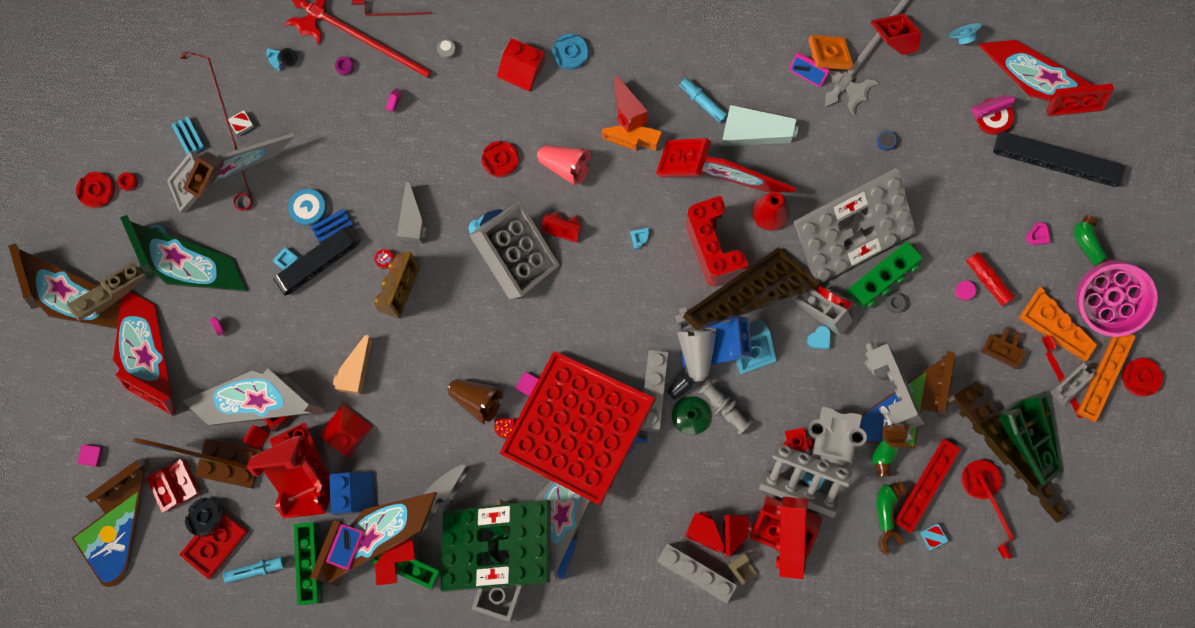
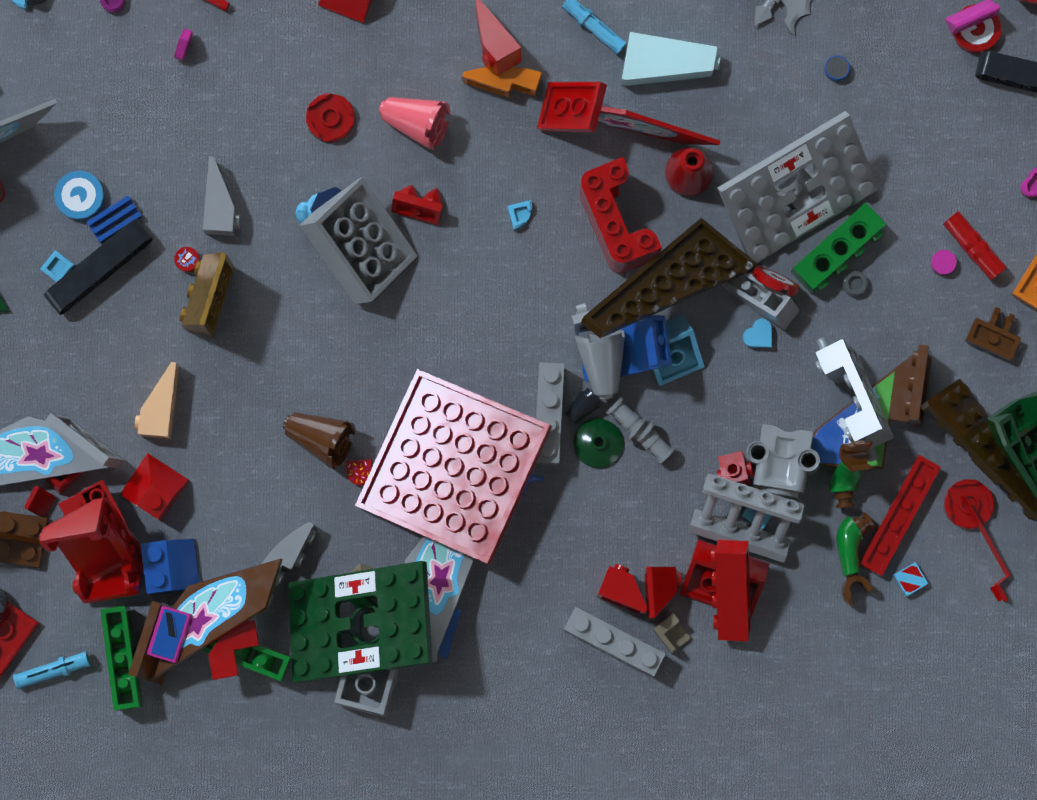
camera: 10 degrees left, 5 degrees up
(526, 384) = (384, 414): dark pink tile -> none

